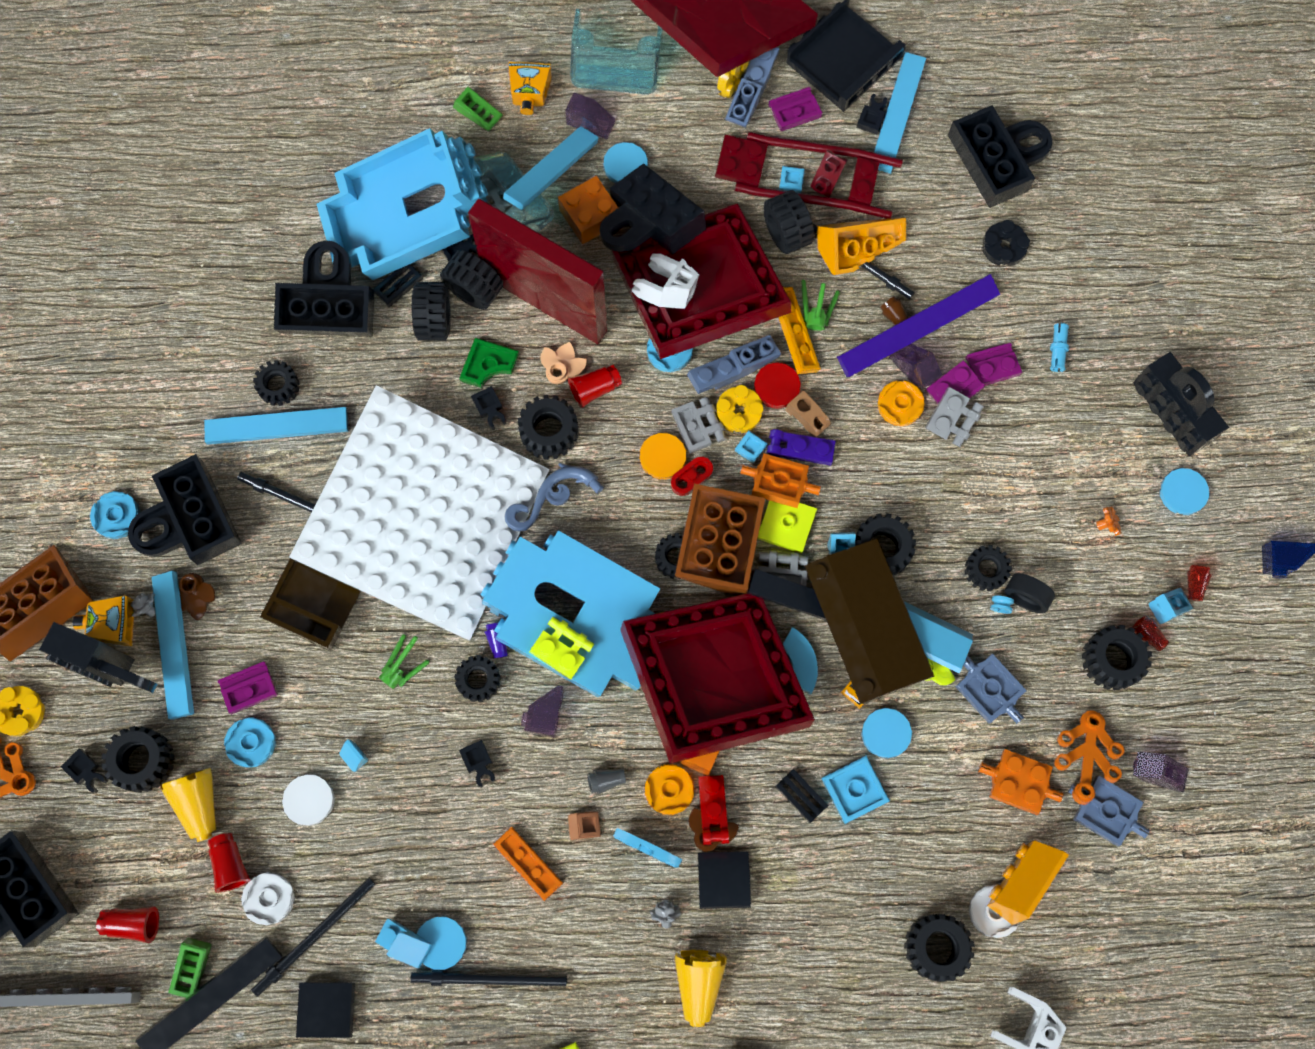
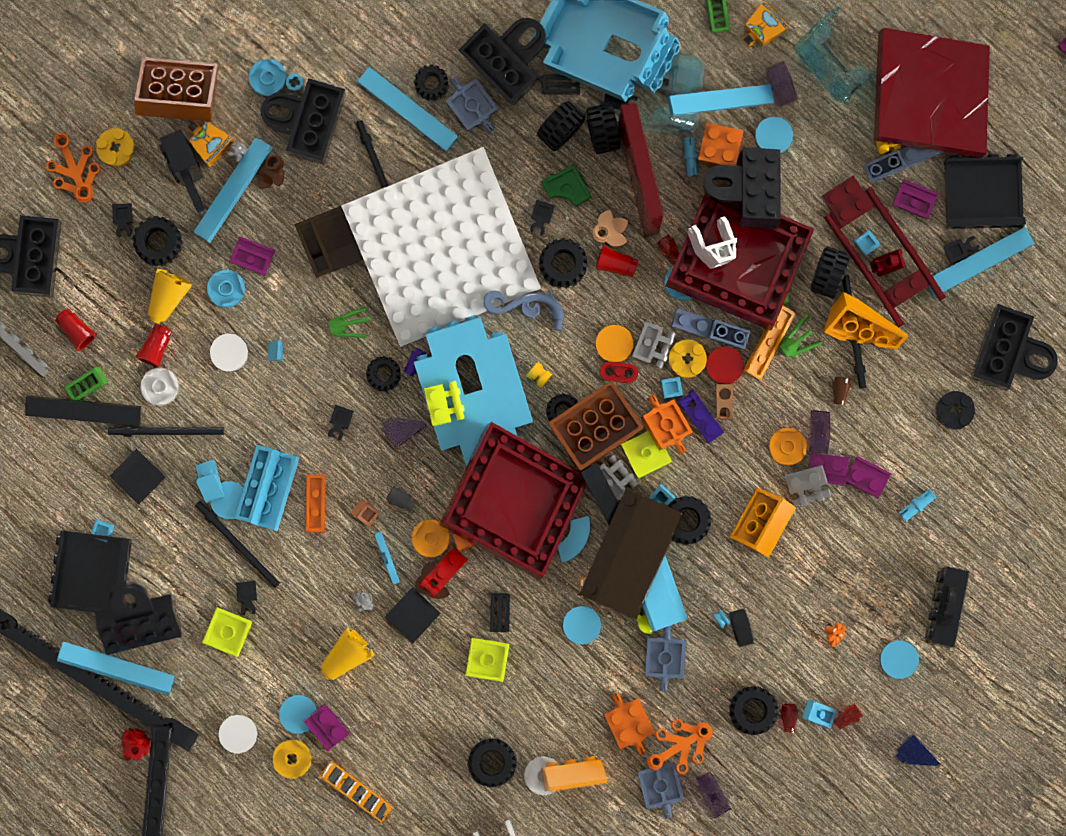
camera: 45 degrees right, 10 degrees up
(138, 496) = (291, 78): none -> medium azure bush
(332, 369) = (472, 105): none -> sand blue plate
(466, 894) = (267, 487): none -> medium azure slope
(543, 1019) = (247, 593): none -> black plate
(571, 241) = (690, 157): none -> medium azure pin
(623, 544) = (539, 375): none -> yellow wheel
(629, 331) = (668, 247): none -> clear red cone
(834, 852) = (487, 659): none -> neon yellow plate
(855, 789) = (533, 638): medium azure tile -> none
(918, 325) = (845, 410): dark purple tile -> none
(948, 485) = (762, 522): none -> light orange slope
(995, 556) = (735, 579): black tyre -> none

